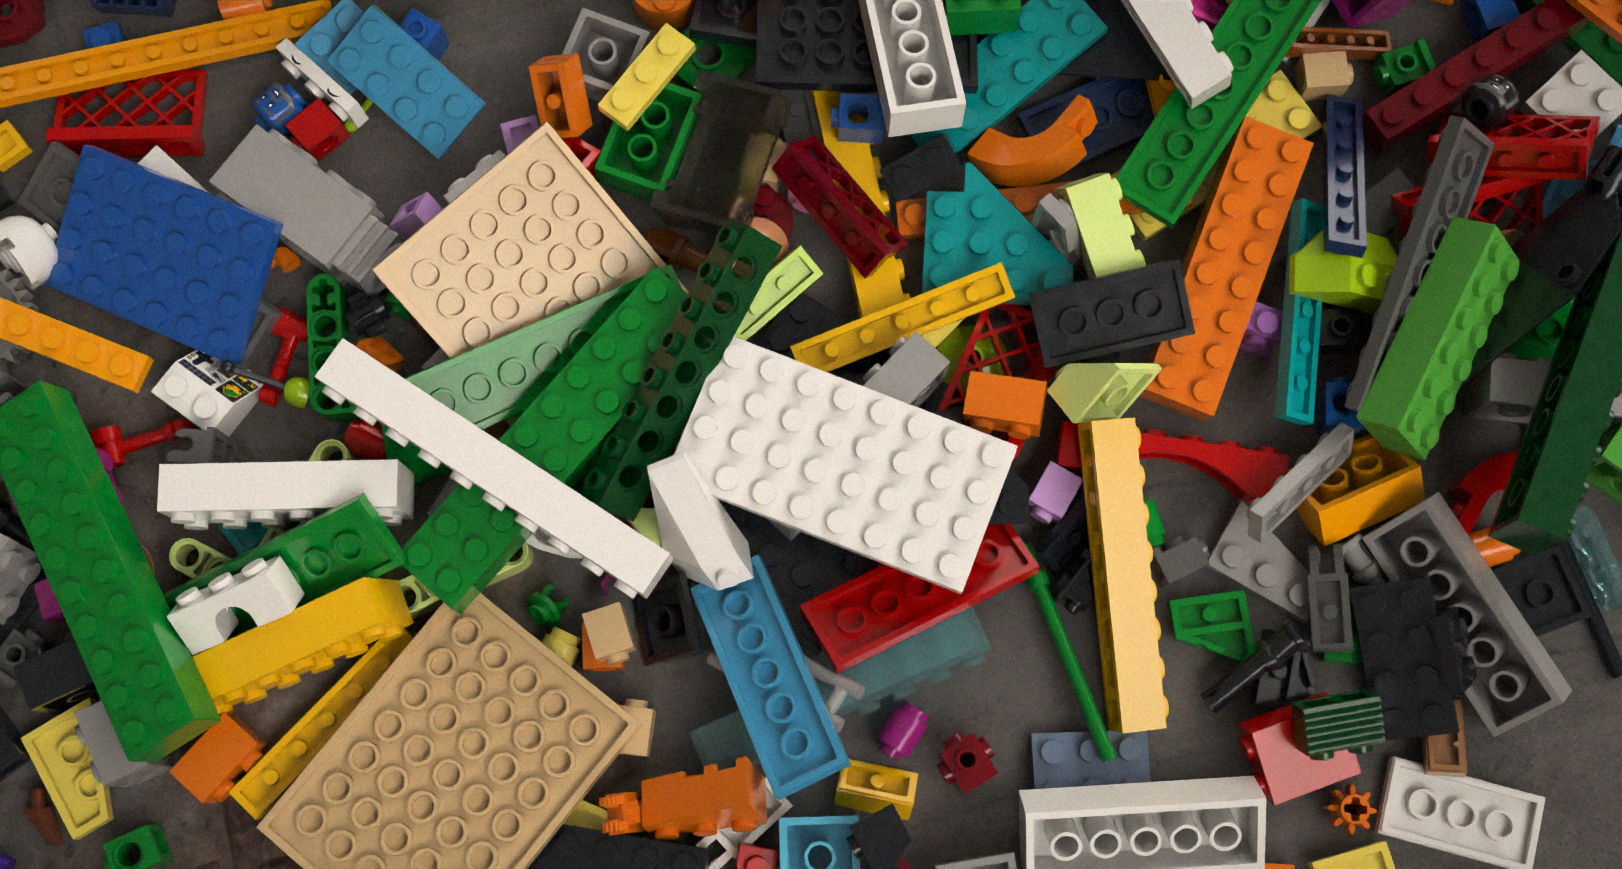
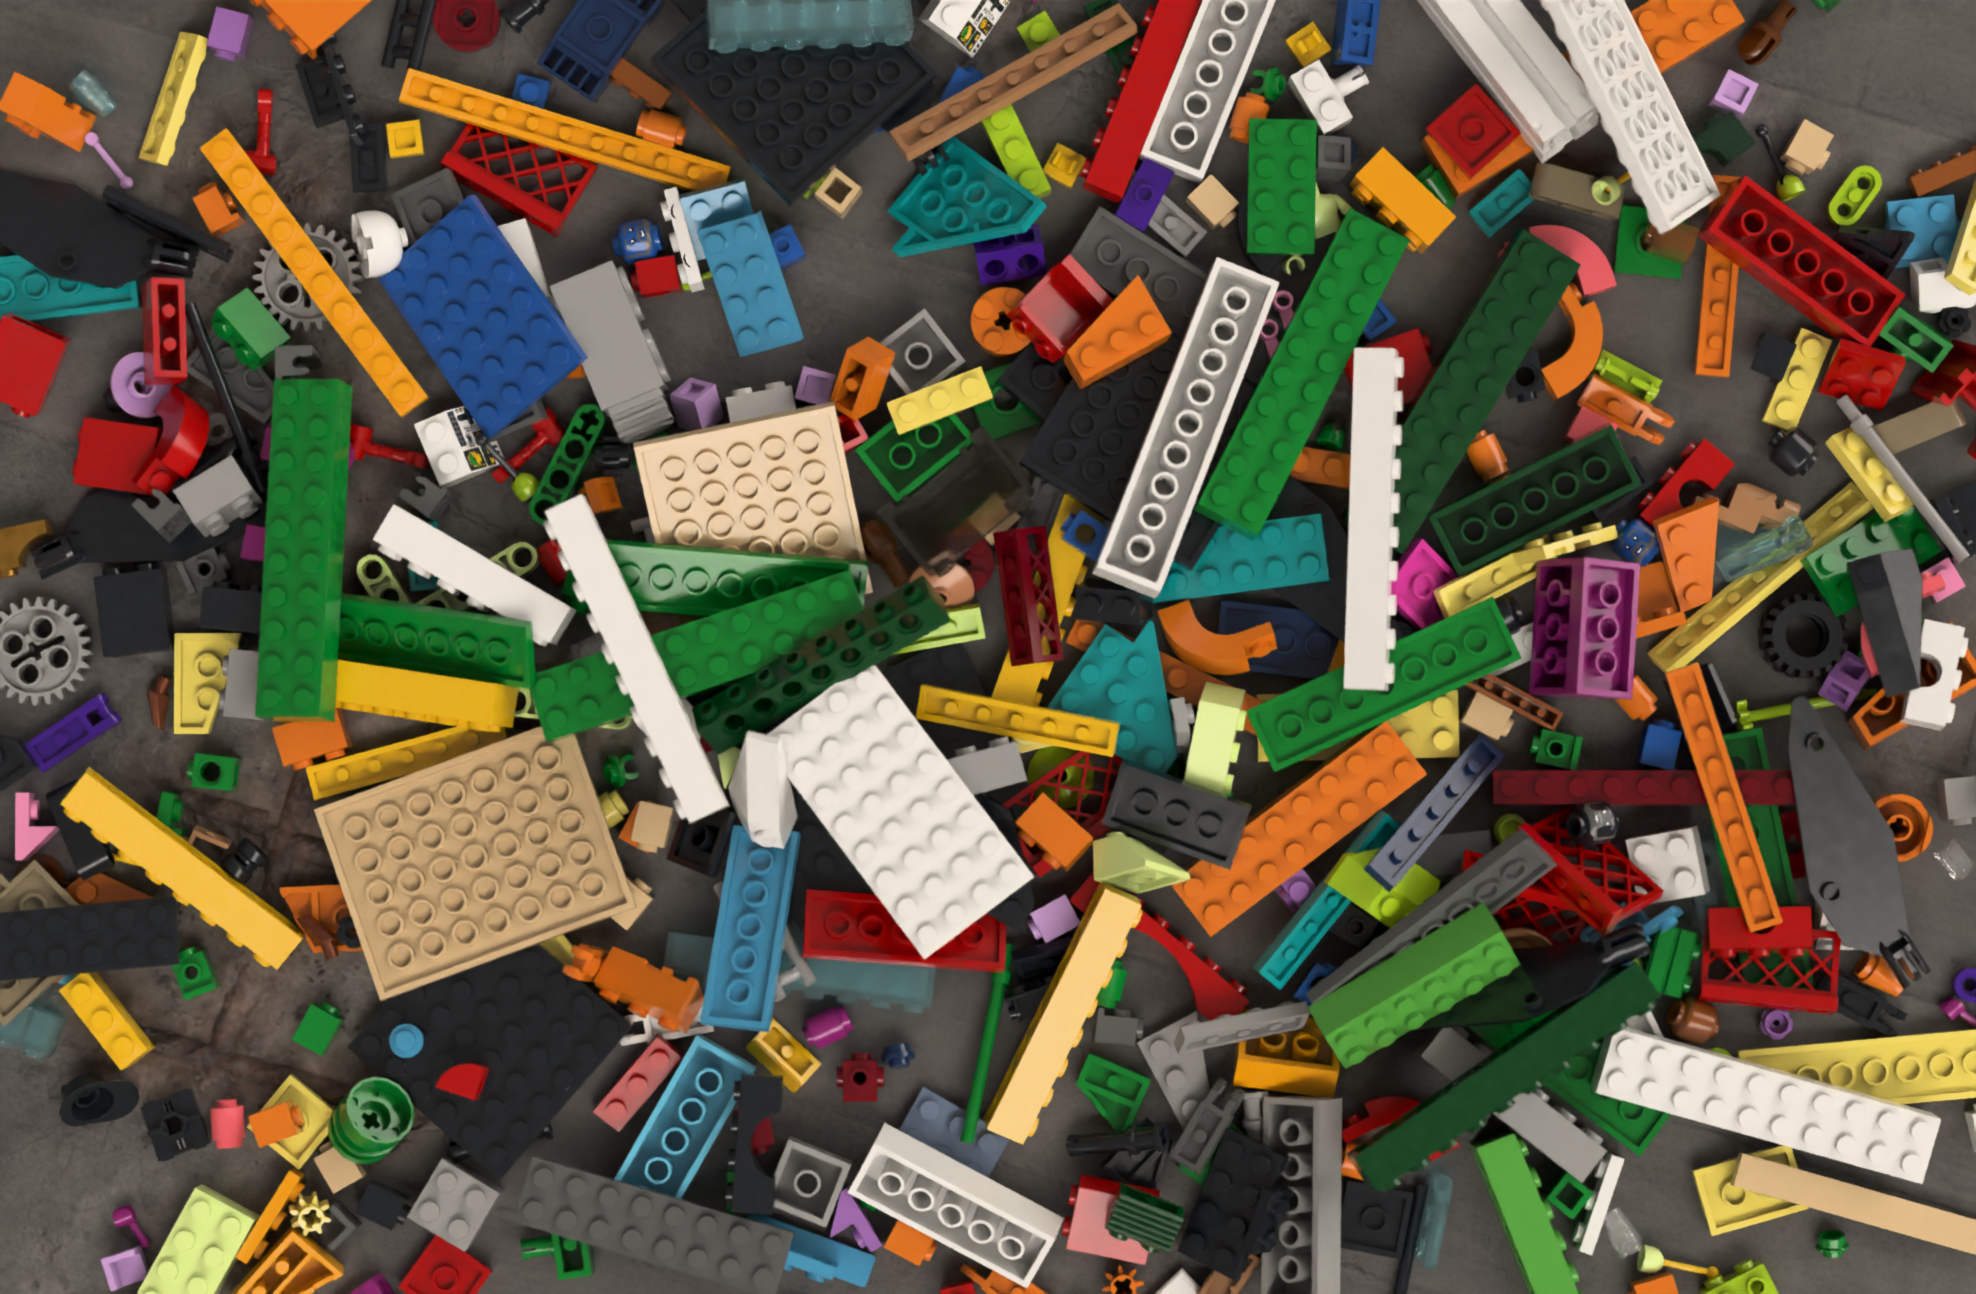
camera: 30 degrees right, 10 degrees up
(261, 589) = (416, 642): white arch -> none
(988, 718) = (898, 1056): none -> dark blue plate
(1412, 162) = (1506, 826): none -> lime plate

